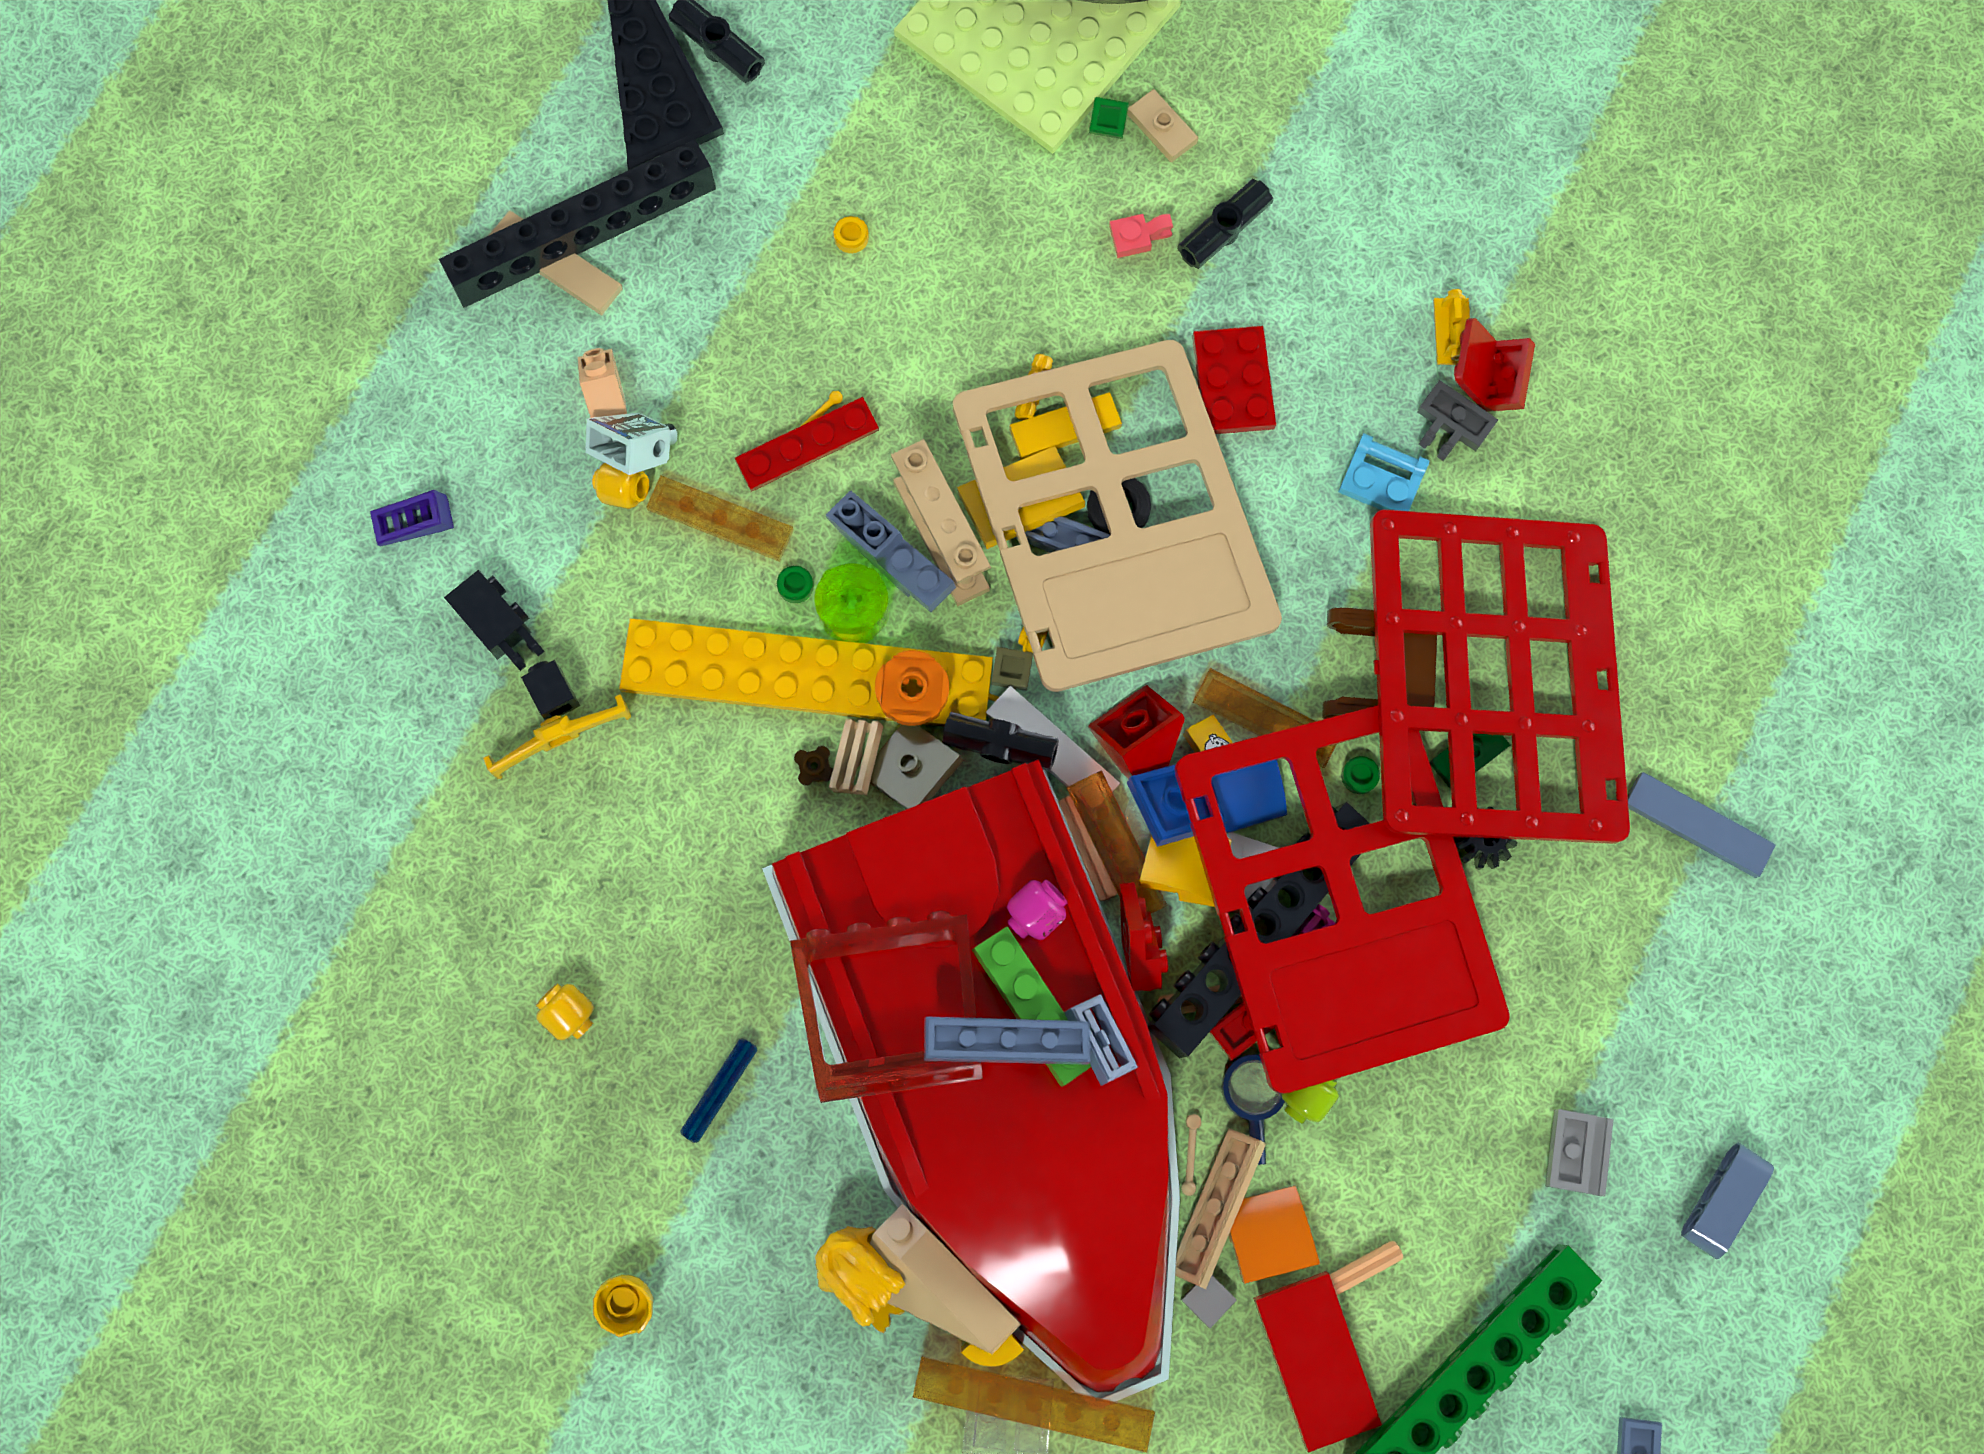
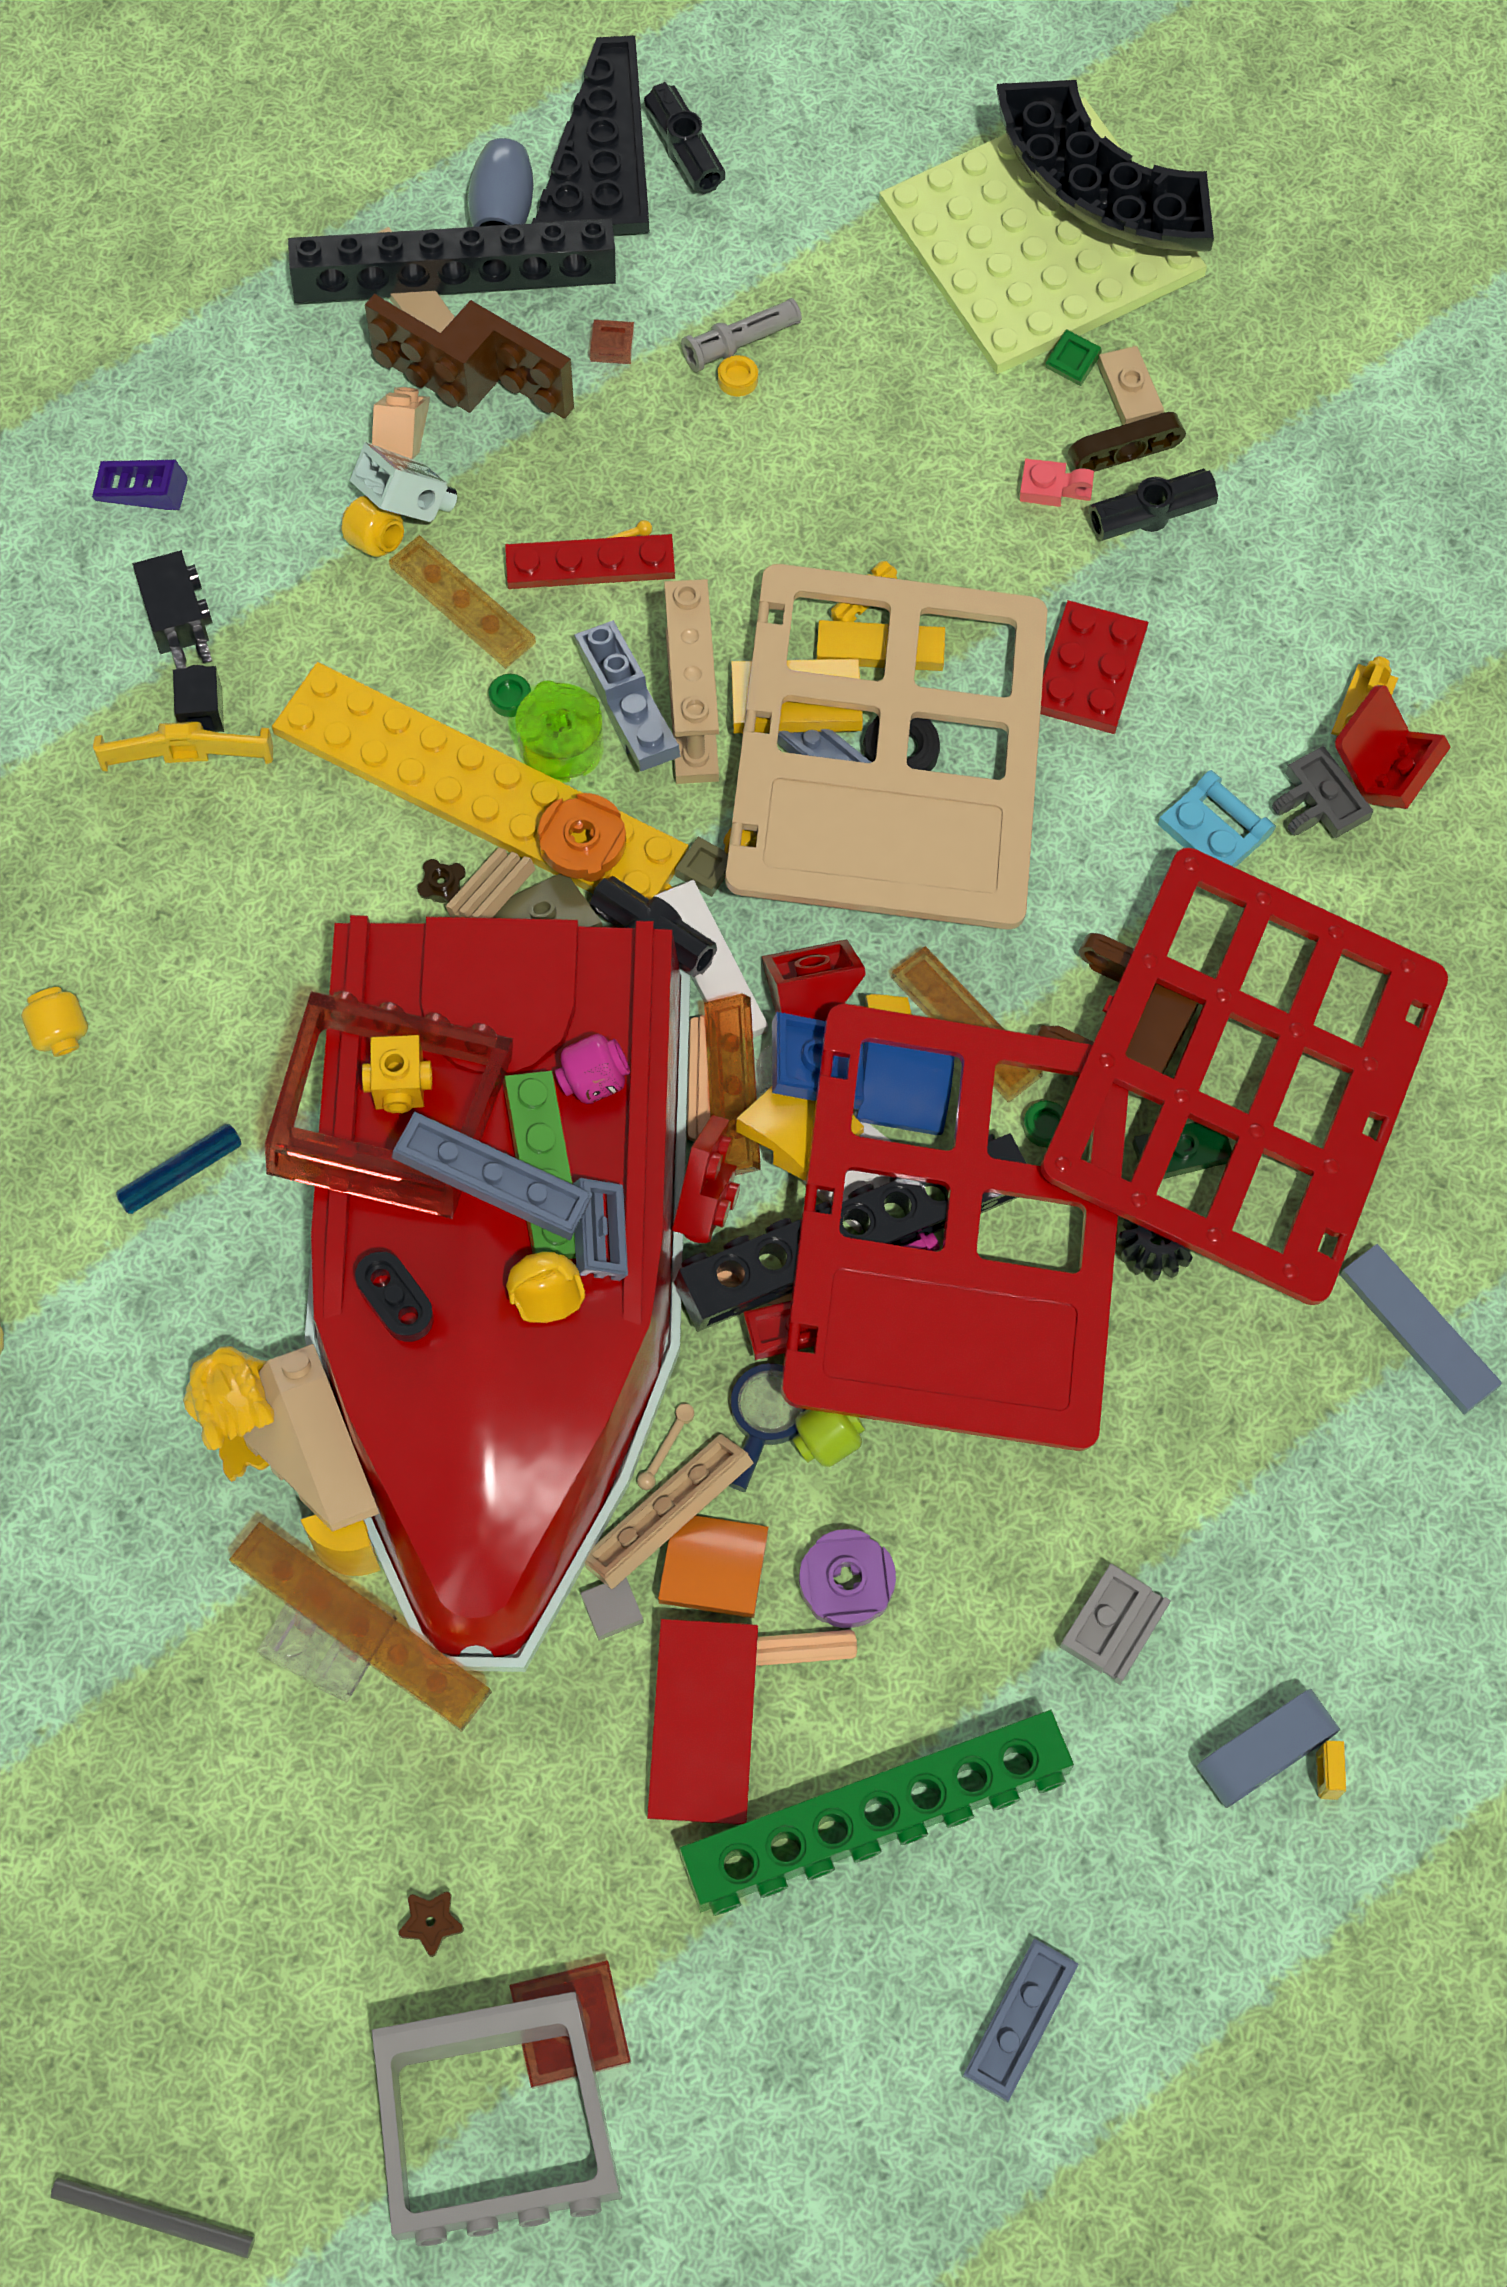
camera: 25 degrees right, 10 degrees down
(589, 143) = (501, 185): none -> sand blue piece
(634, 306) = (470, 357): none -> reddish brown bracket
(737, 243) = (612, 341): none -> clear red tile
(828, 208) = (725, 339): none -> light grey pin
(885, 965) = (397, 1073): none -> yellow brick
(968, 1162) = (396, 1298): none -> black plate
(1082, 1106) = (545, 1287): none -> yellow hair
(1182, 177) = (1127, 442): none -> dark brown beam
(1393, 1208) = (865, 1558): none -> medium lavender plate
(1780, 1199) = (1331, 1770): none -> yellow tile

